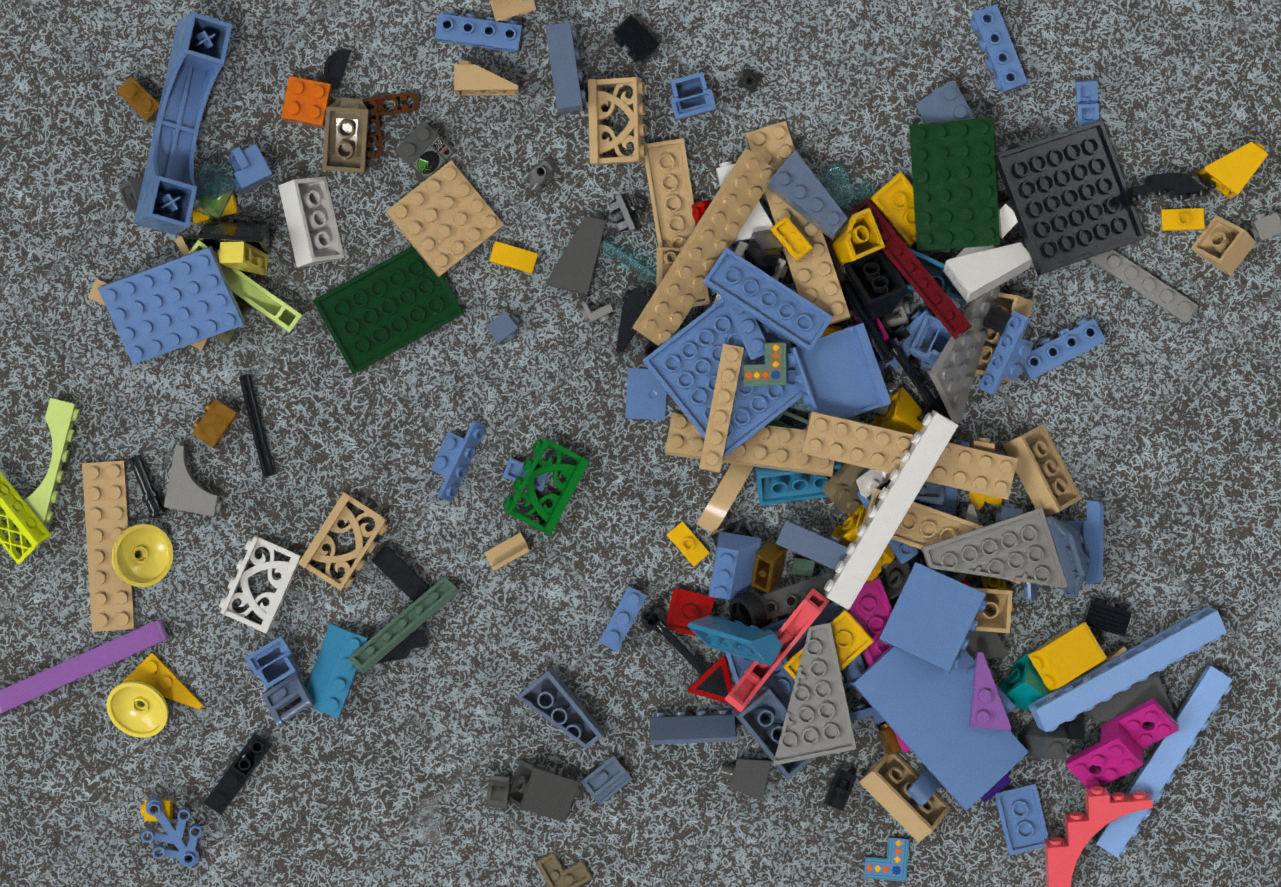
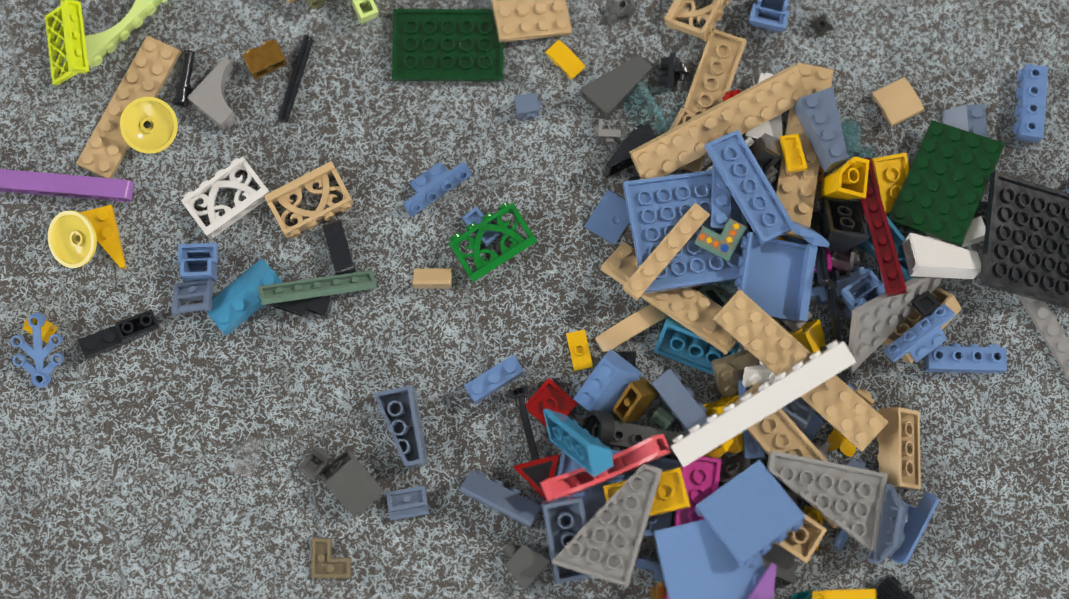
camera: 25 degrees right, 10 degrees down
(849, 316) = (809, 234): none -> medium blue slope
(866, 120) = (898, 101): none -> tan slope

